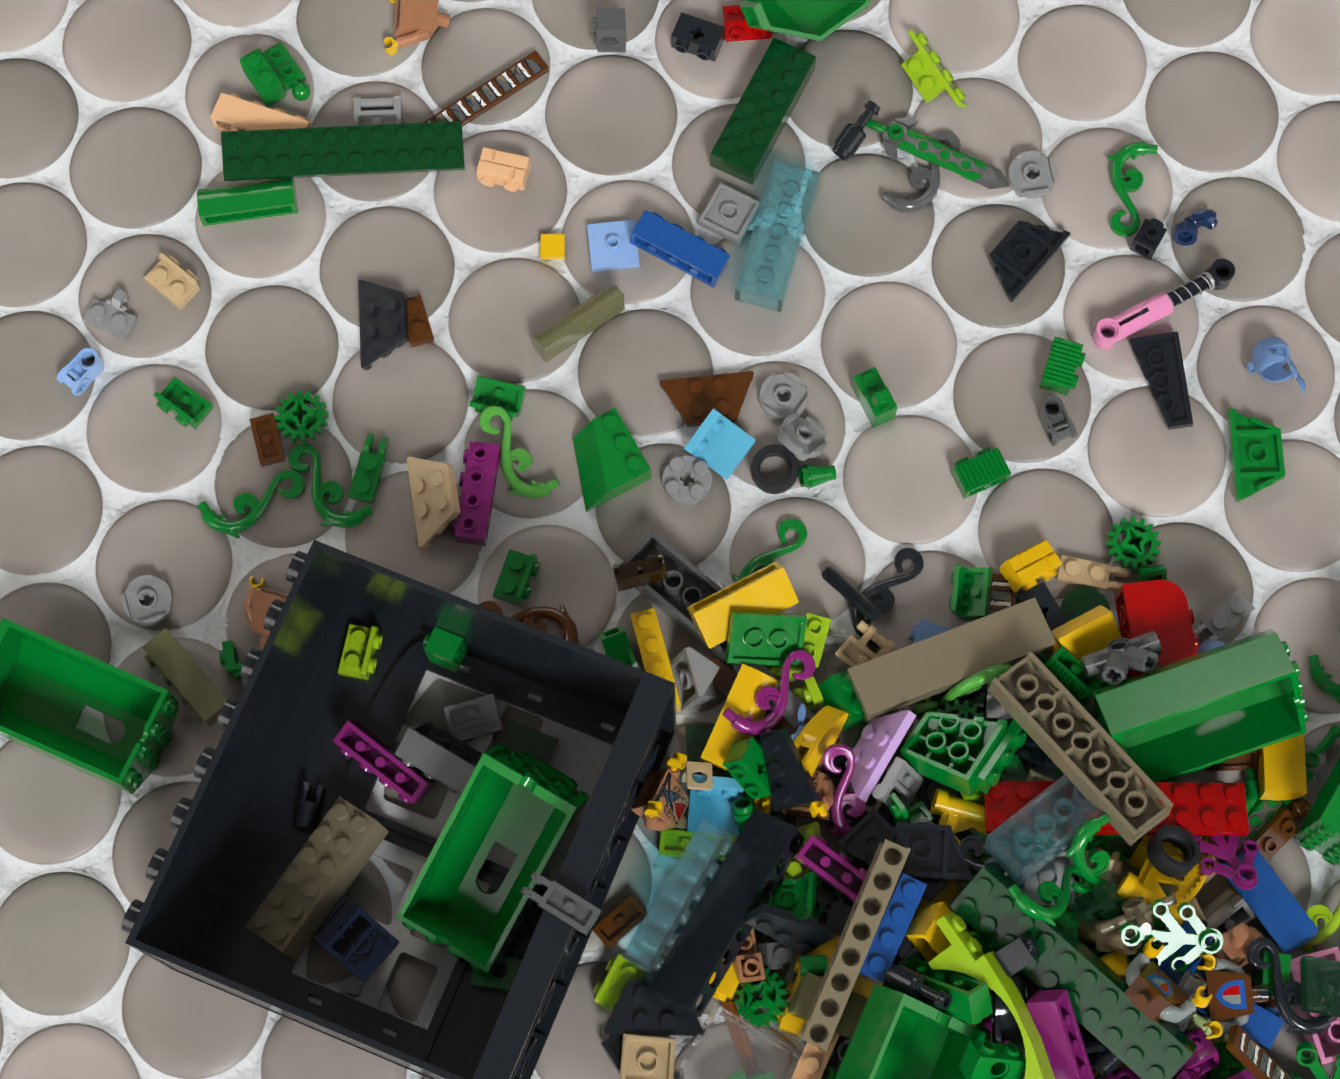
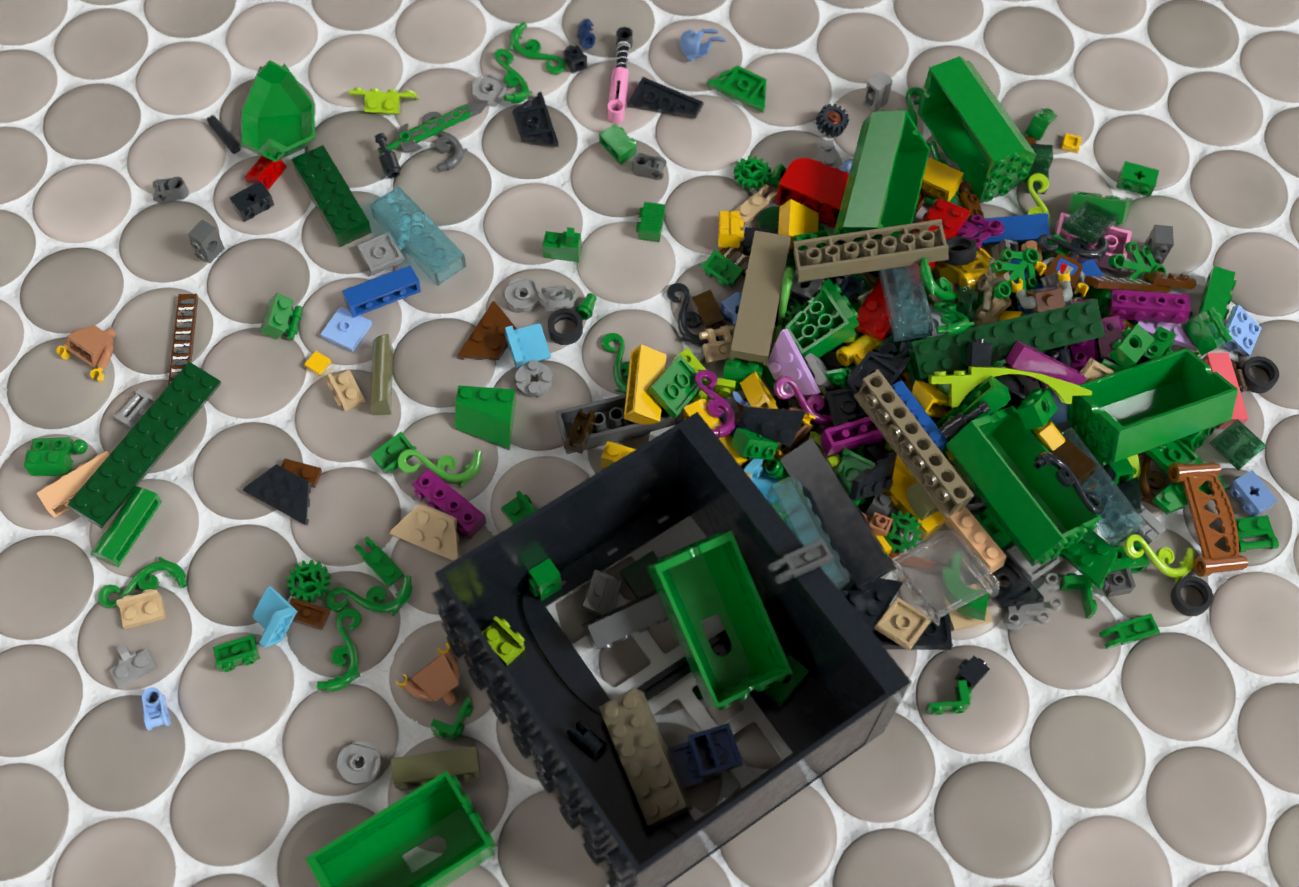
camera: 60 degrees left, 10 degrees down
(201, 256) = (140, 580): none -> green plant
(242, 412) = (274, 616): none -> medium azure bracket
(378, 757) = (596, 664): magenta brick -> none
(503, 169) = (242, 358): light nougat brick -> none
(539, 296) = (346, 390): none -> tan bracket
(576, 166) = (277, 316): none -> green brick
(813, 964) = (900, 487): green brick -> none
(850, 593) = (676, 331): black axle -> none
(905, 612) = (709, 310): none -> dark brown hinge
(1072, 188) = (512, 78): none -> green plant
(1123, 655) = (827, 204): dark grey piece -> none
(1281, 590) = (832, 120): none -> black wheel

